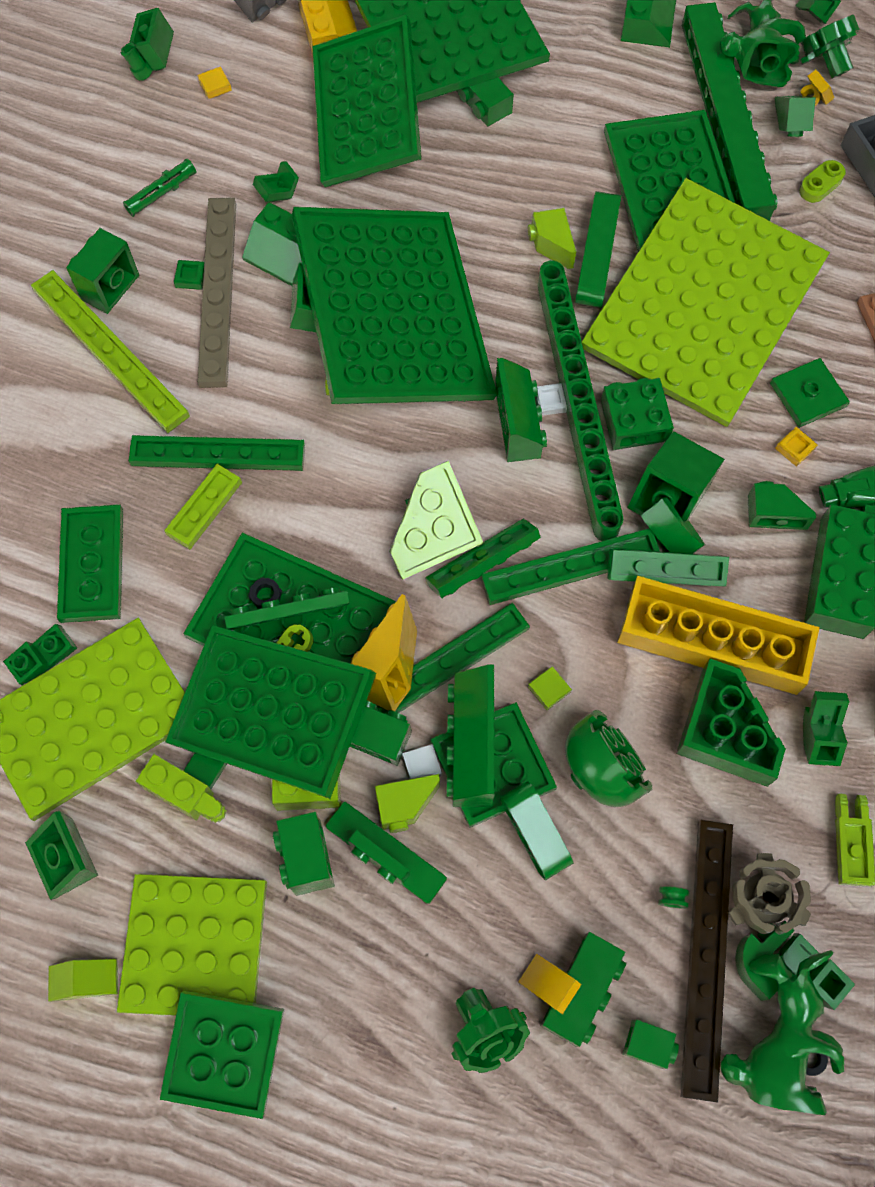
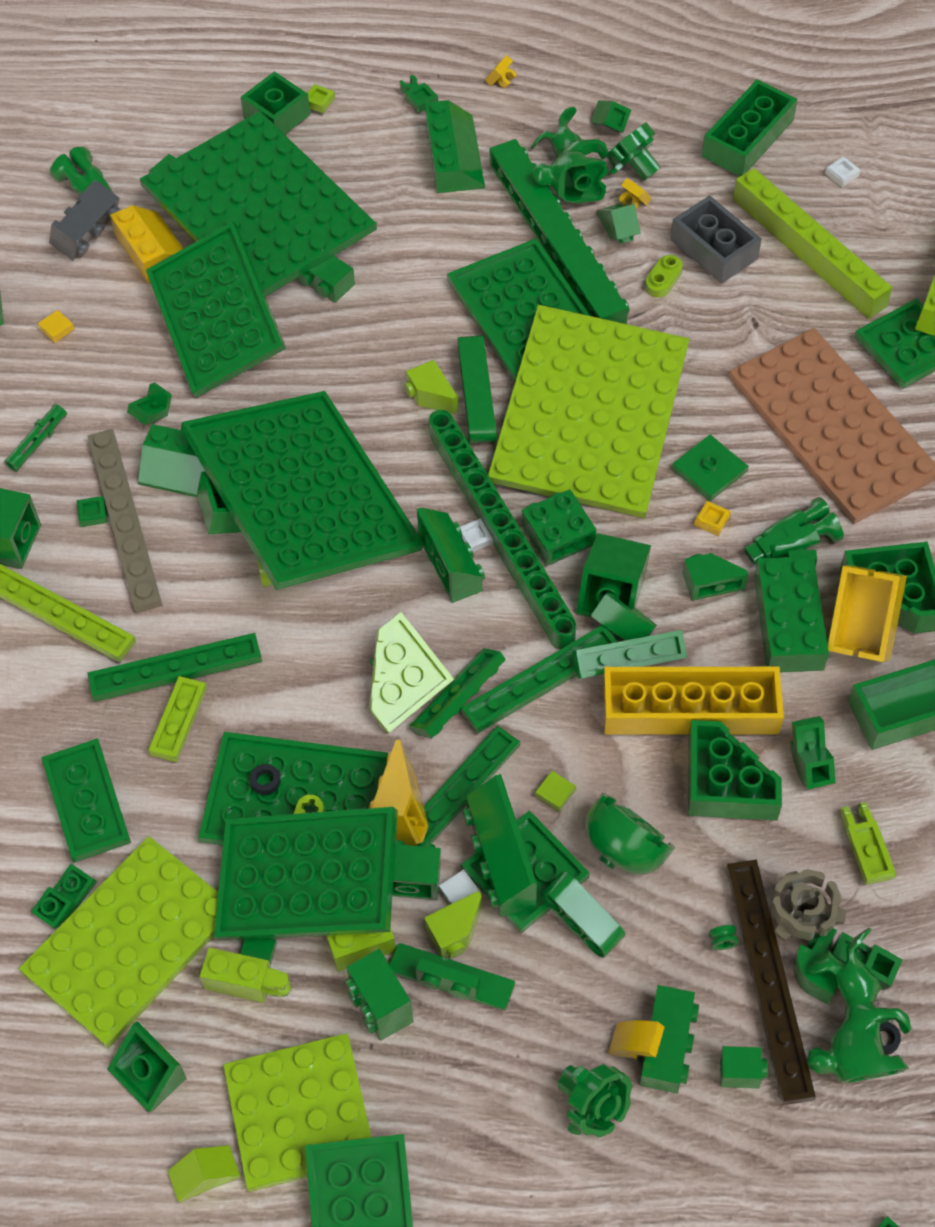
camera: 15 degrees left, 10 degrees down
(273, 611) = (303, 779): green plate -> none

